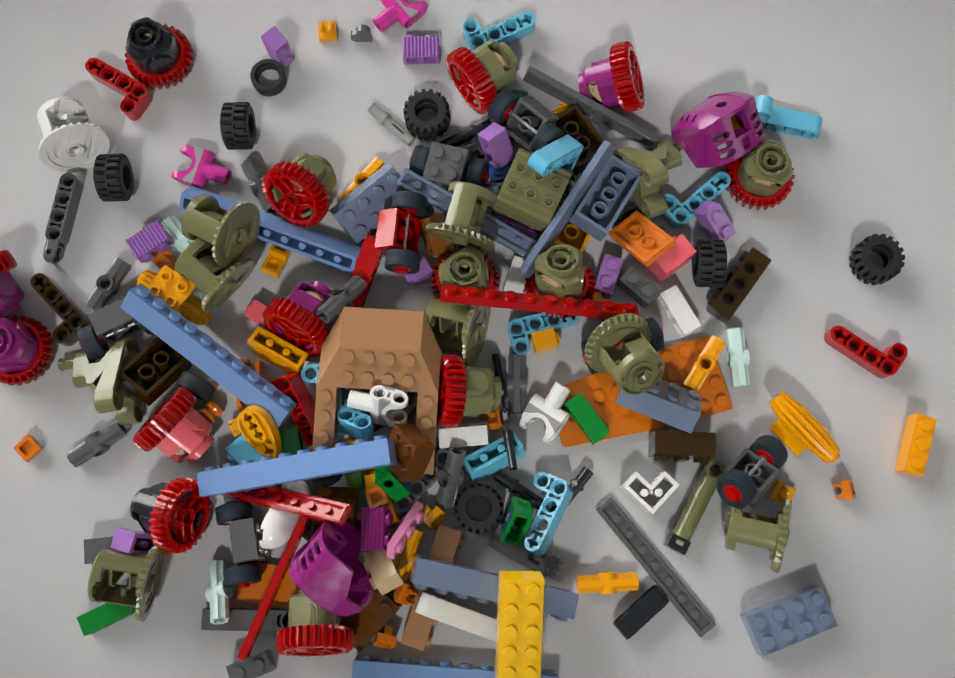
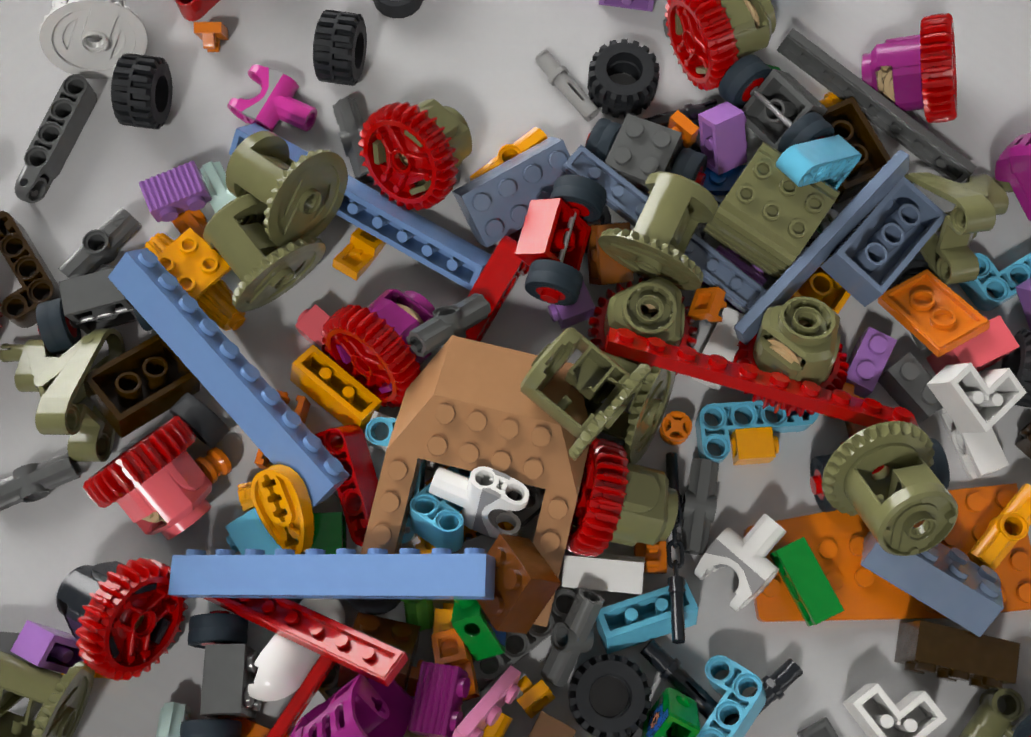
camera: 10 degrees right, 5 degrees down
(150, 129) = (211, 34): none -> orange tile
(430, 318) = (587, 377): none -> olive piece
(469, 143) = (681, 123): none -> orange plate
(497, 335) = (679, 423): none -> orange wheel
(502, 256) = (707, 304): none -> orange tile
(673, 290) = (973, 398): none -> white brick

